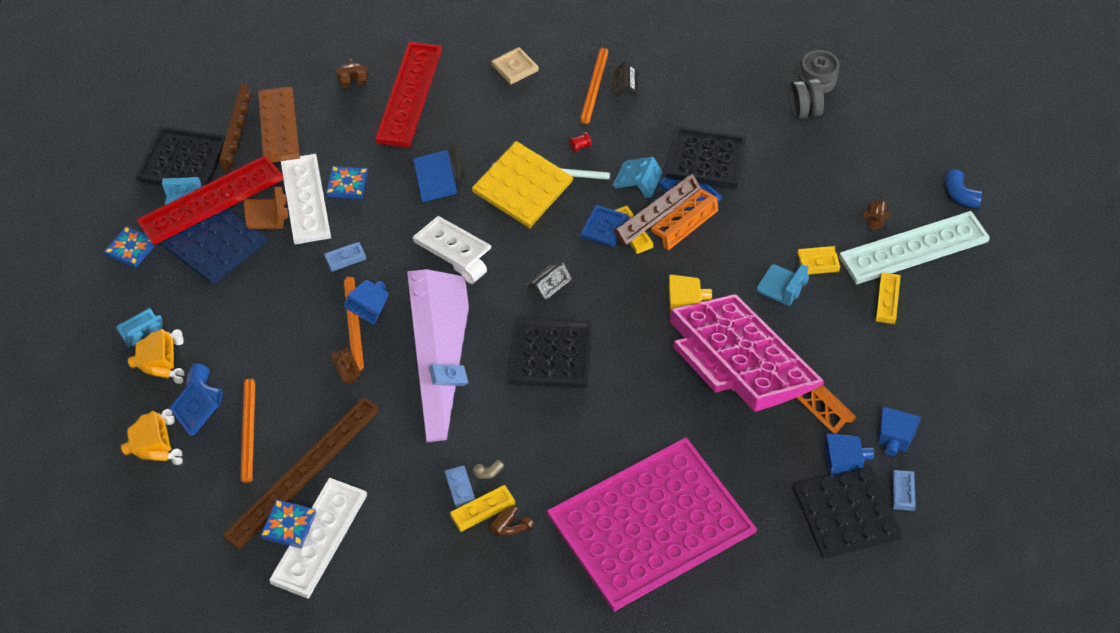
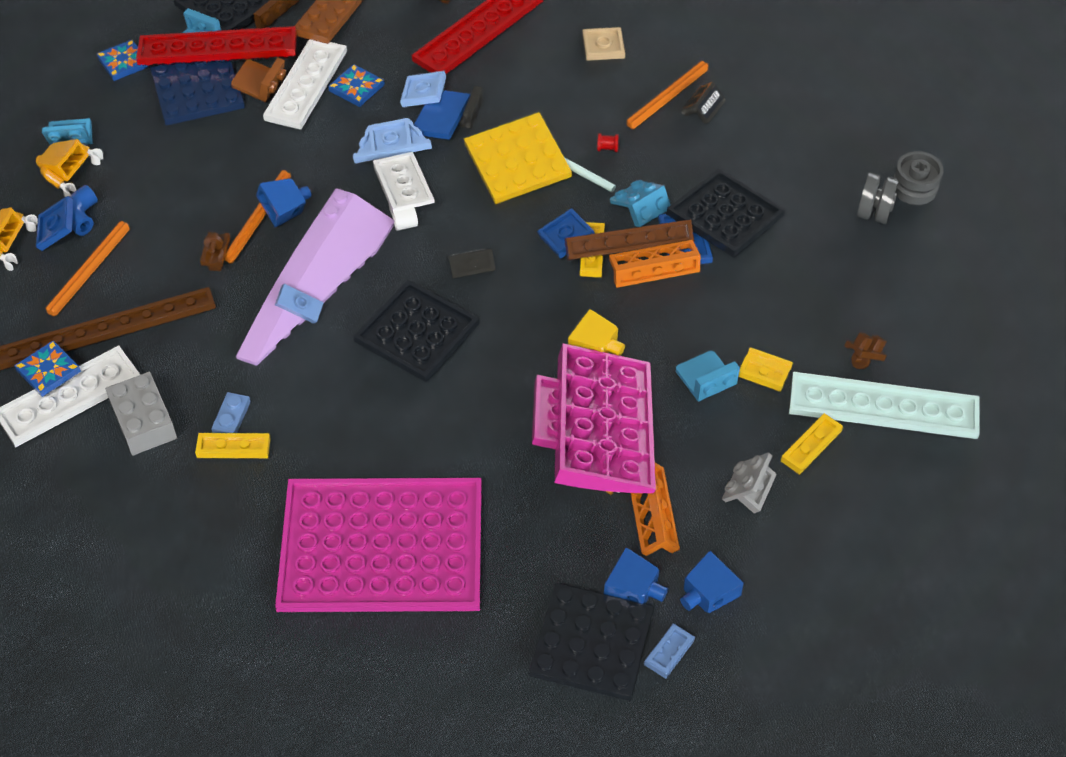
camera: 30 degrees right, 0 degrees up
(345, 256) = (298, 151): medium blue plate -> none
(392, 520) = (141, 413): none -> light grey brick
(406, 162) = (423, 89): none -> light blue tile
(413, 213) = (390, 139): none -> light blue wing
(487, 472) = (268, 415): dark tan arm -> none
(505, 518) = (246, 466): reddish brown plant -> none
(869, 345) = (751, 482): none -> light grey bracket
(960, 193) = (982, 373): blue cylinder -> none

